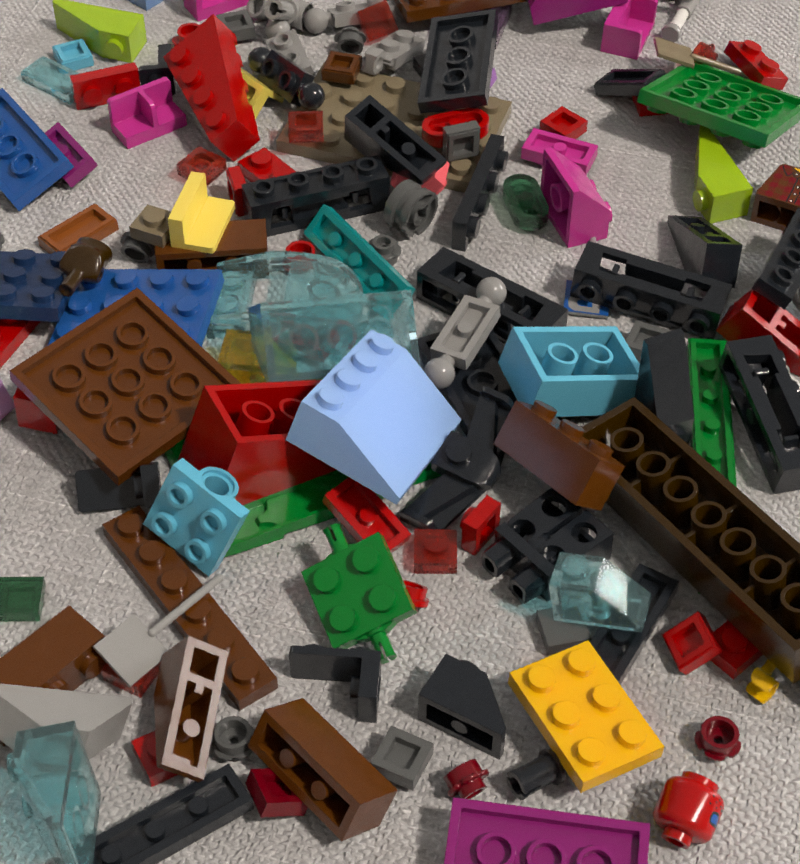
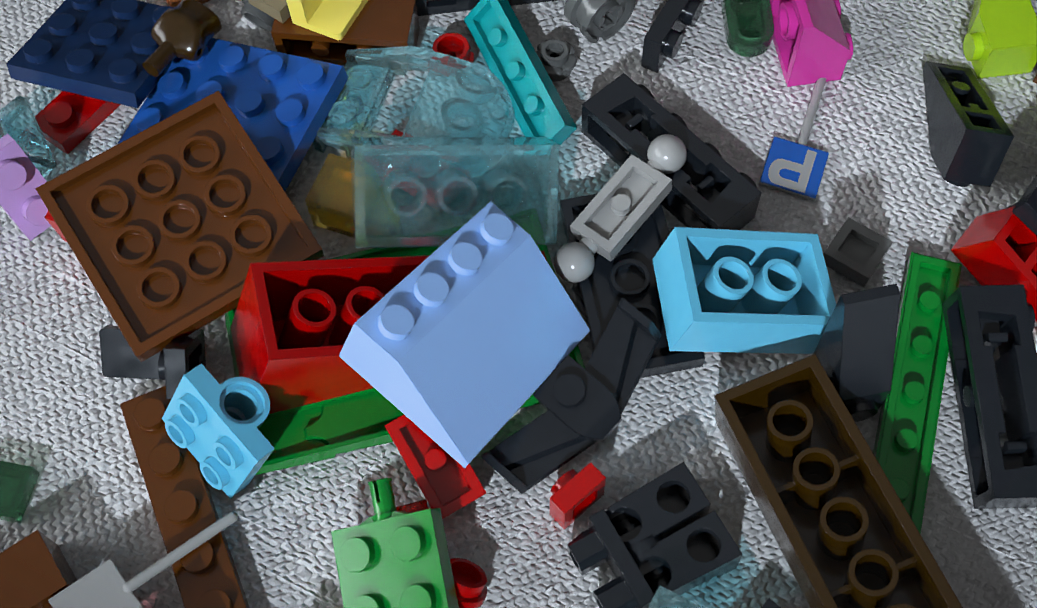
camera: 15 degrees right, 15 degrees up
(435, 551) = (513, 517): clear red plate -> none
(559, 454) = (695, 428): reddish brown brick -> none
(650, 290) = (878, 176): black brick -> none

